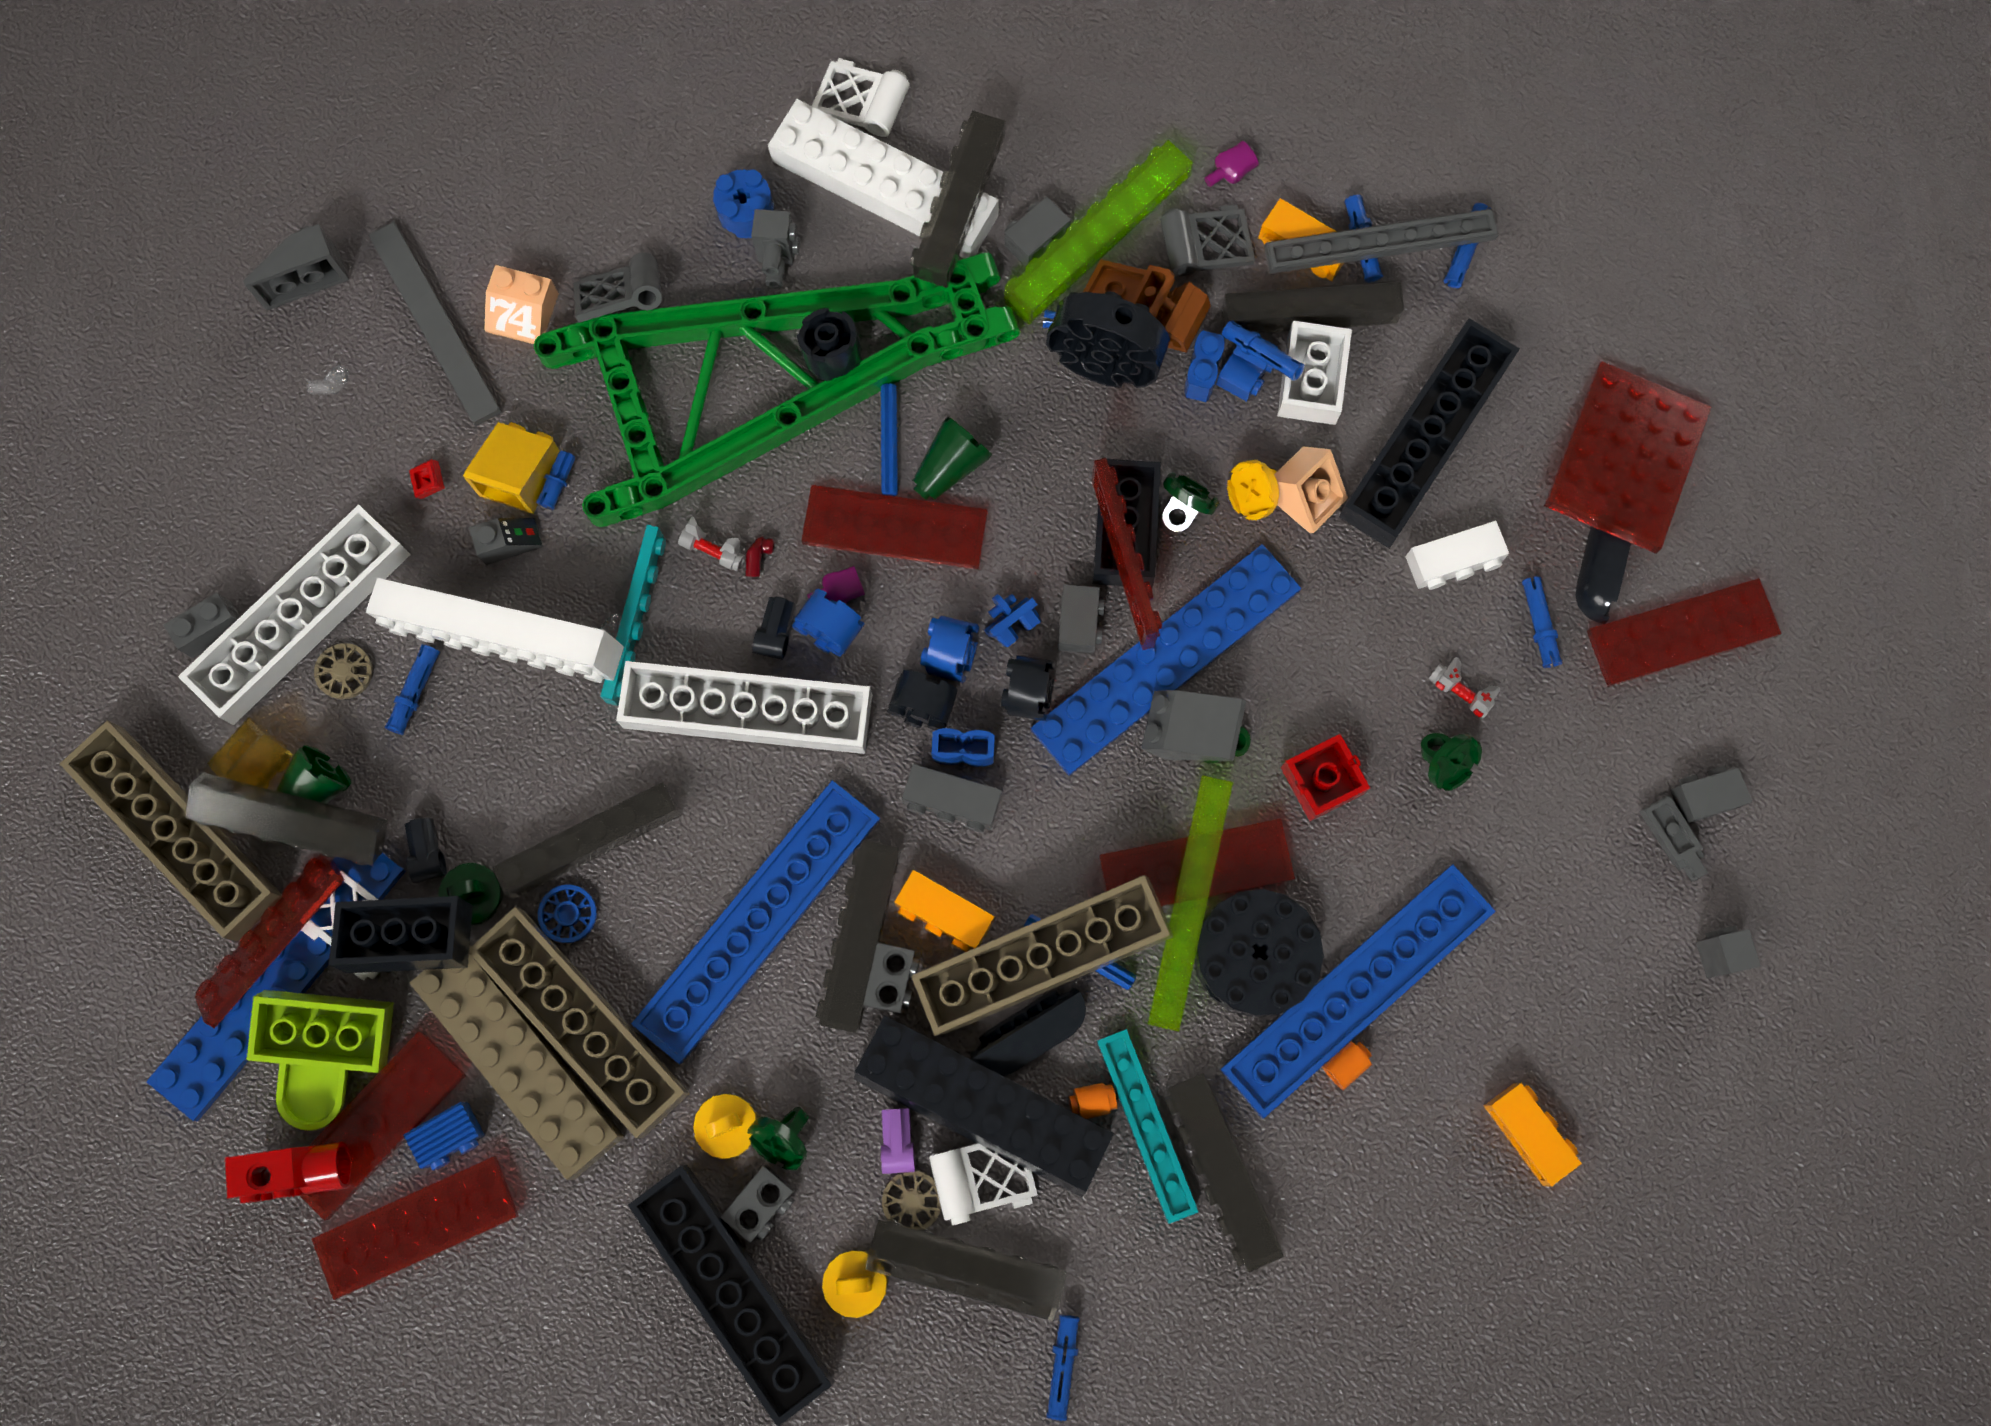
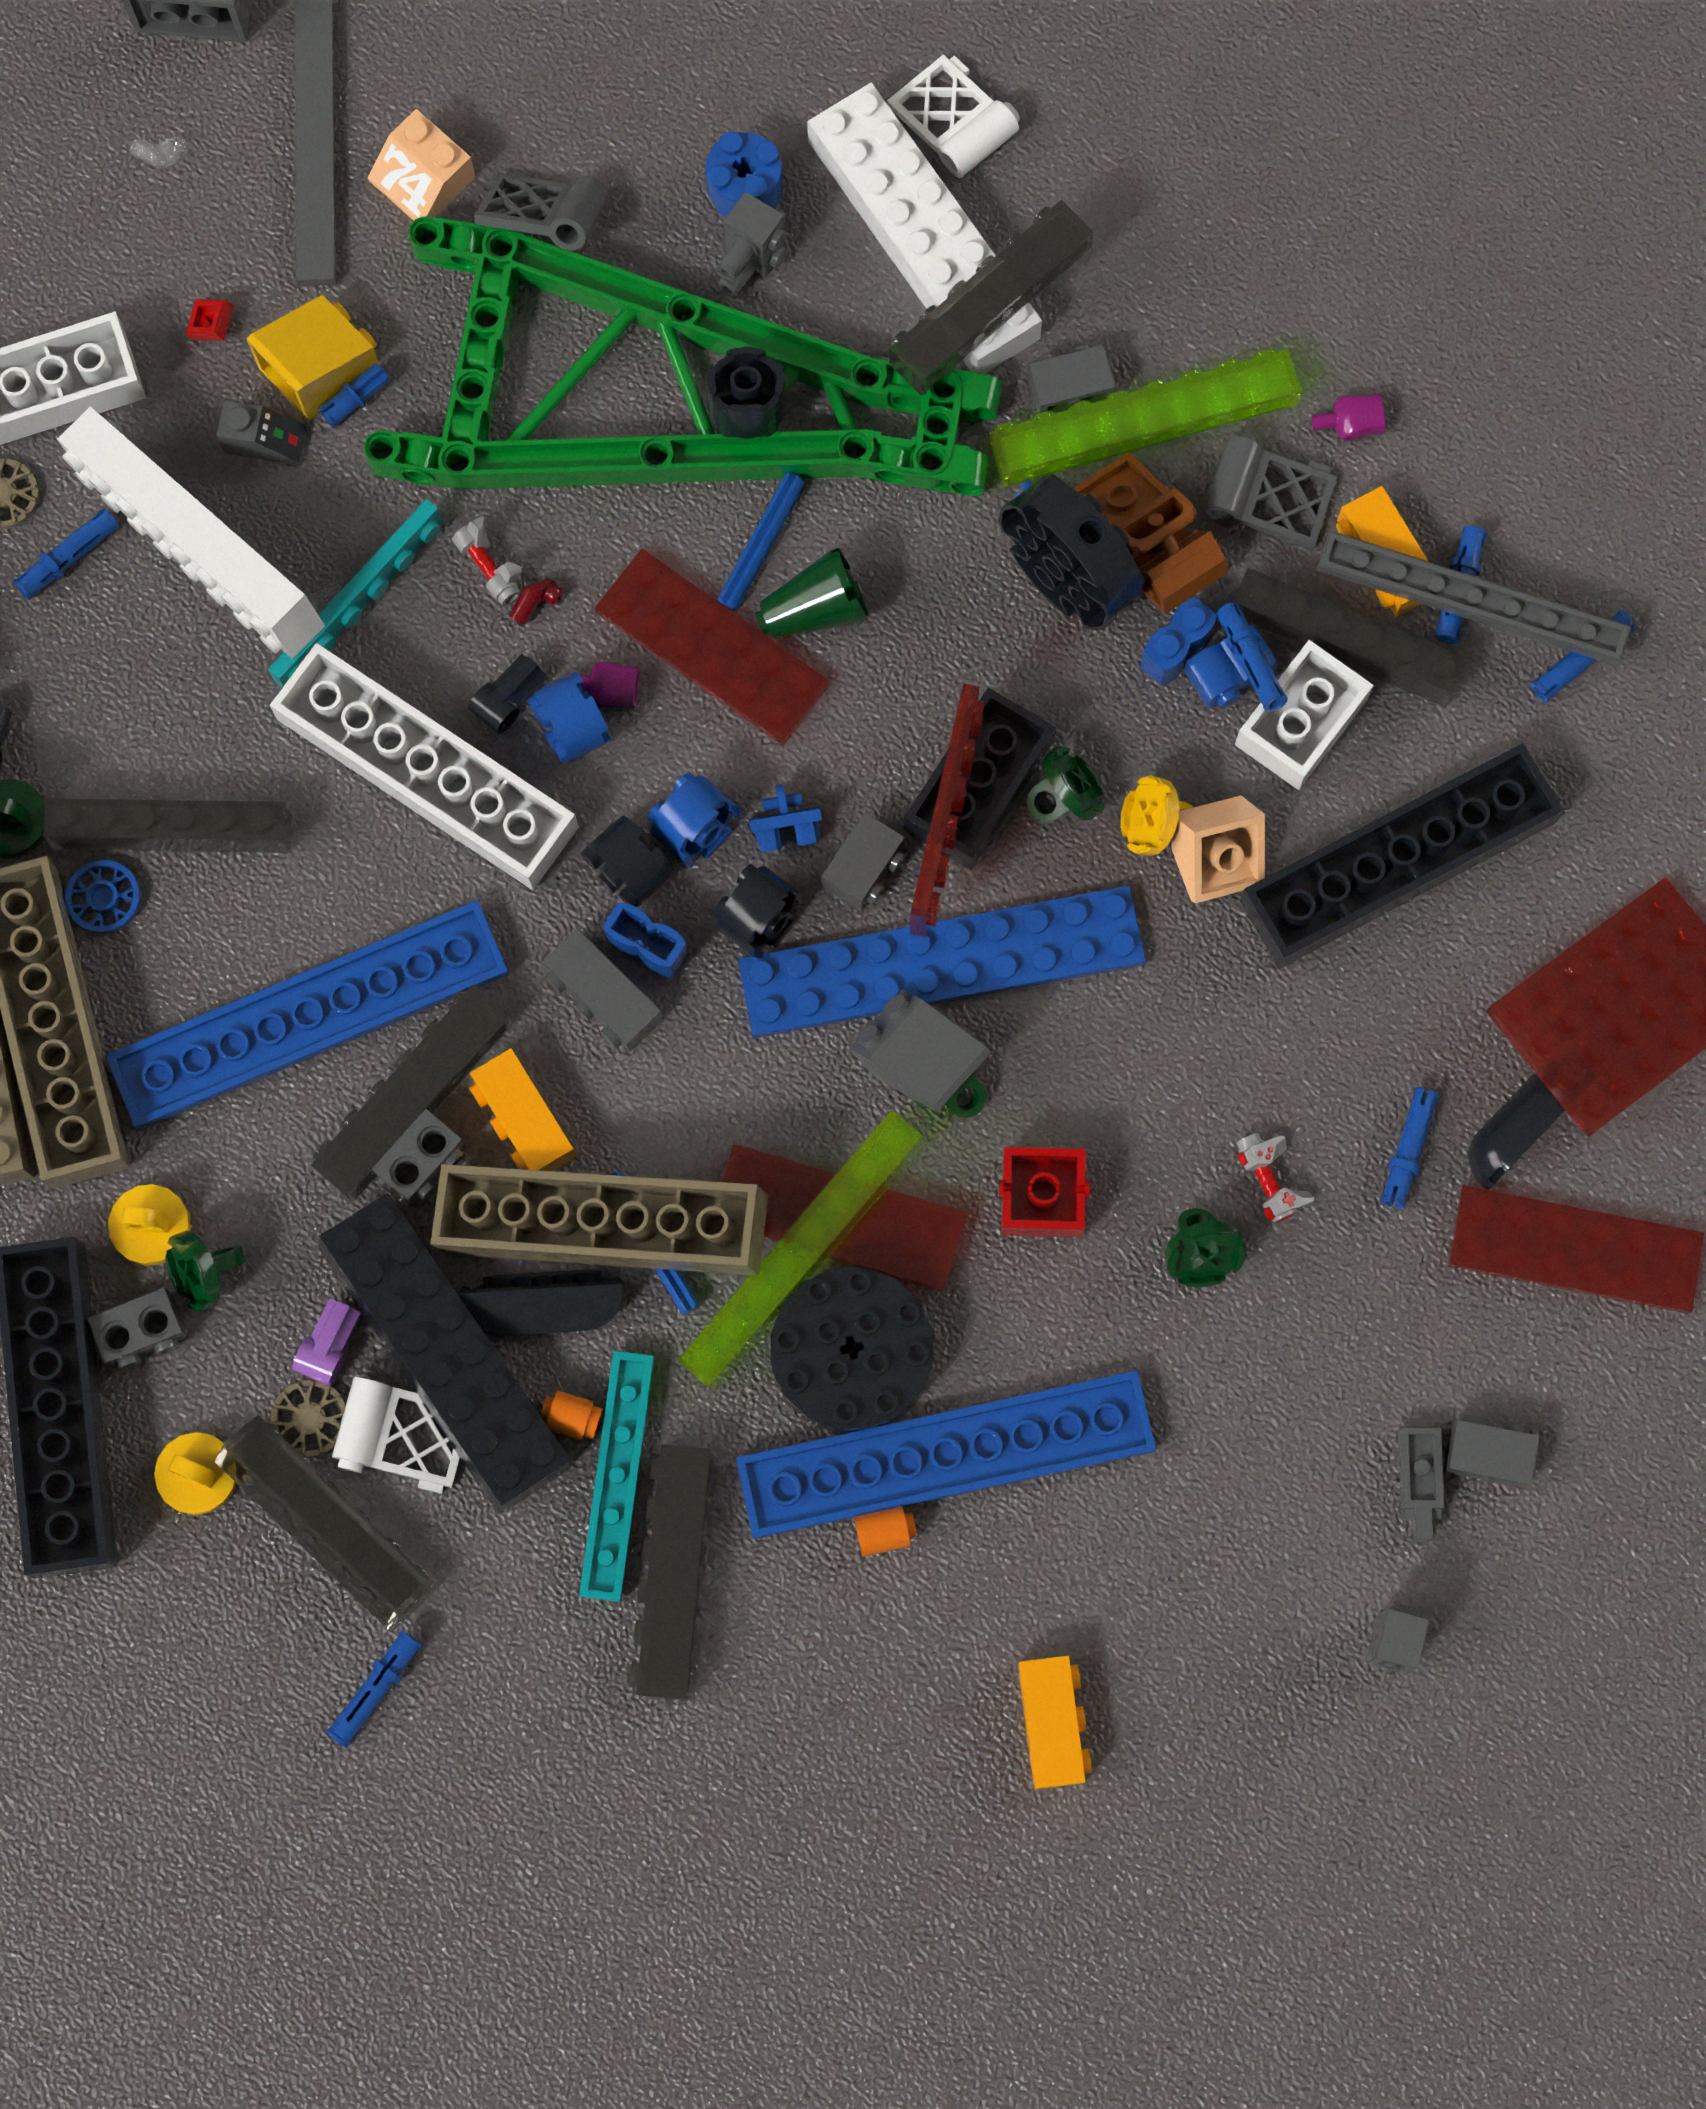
camera: 30 degrees right, 0 degrees up
(1457, 556) = (1352, 1018): white brick -> none

